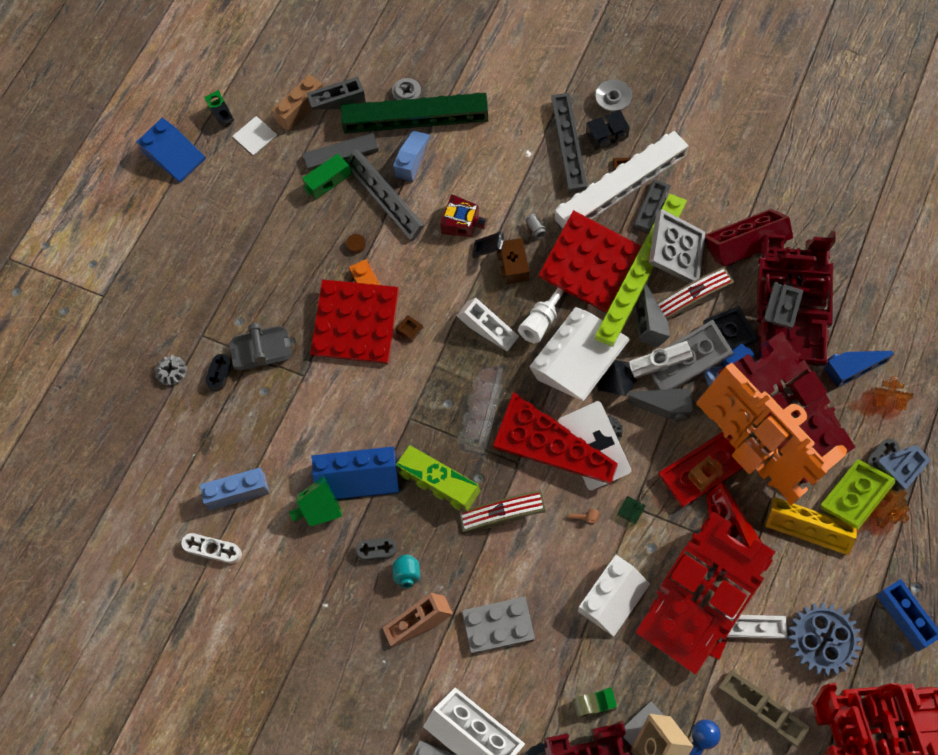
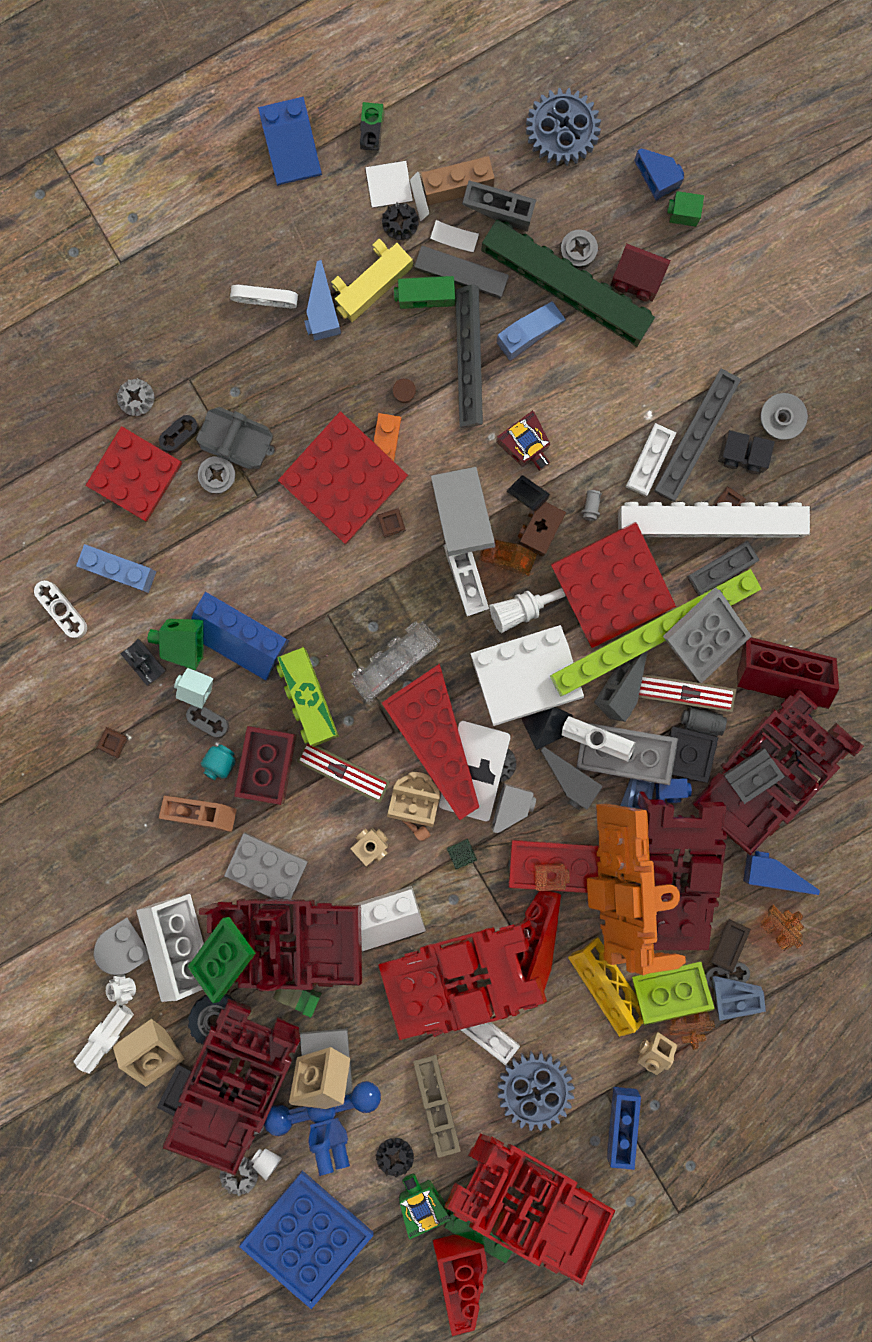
camera: 30 degrees right, 20 degrees up
(203, 420) = (134, 474): none -> red plate
(218, 249) = (264, 296): none -> white beam
(260, 373) = (205, 474): none -> light grey gear
(267, 234) = (320, 308): none -> medium blue slope
(278, 156) = (393, 229): none -> black gear
(280, 127) = (419, 196): none -> white sticker
(286, 194) = (373, 282): none -> light yellow brick
(300, 539) = (143, 662): none -> black hips
(315, 616) = (112, 742): none -> reddish brown tile
(320, 137) = (454, 236): none -> white sticker
(343, 34) = (576, 111): none -> sand blue gear
(349, 530) = (193, 687): none -> light aqua brick
(422, 19) = (659, 172): none -> blue slope
(442, 546) = (265, 765): none -> dark red brick
(453, 283) = (462, 511): none -> light grey tile
(456, 27) = (685, 208): none -> green brick
(456, 75) = (639, 273): none -> dark red slope
(505, 292) = (509, 557): none -> clear orange slope
(516, 707) = (221, 960): none -> green plate
(551, 176) = (650, 459): none -> white tile
(559, 555) = (368, 854): none -> tan brick
(568, 495) = (414, 799): none -> tan slope
(584, 637) = (325, 942): none -> dark red piece
(638, 445) = (512, 807): none -> light grey slope
(721, 303) = (703, 721): none -> dark grey head
(867, 434) = (730, 946): none -> dark brown tile
(884, 543) = (657, 1053): none -> tan brick

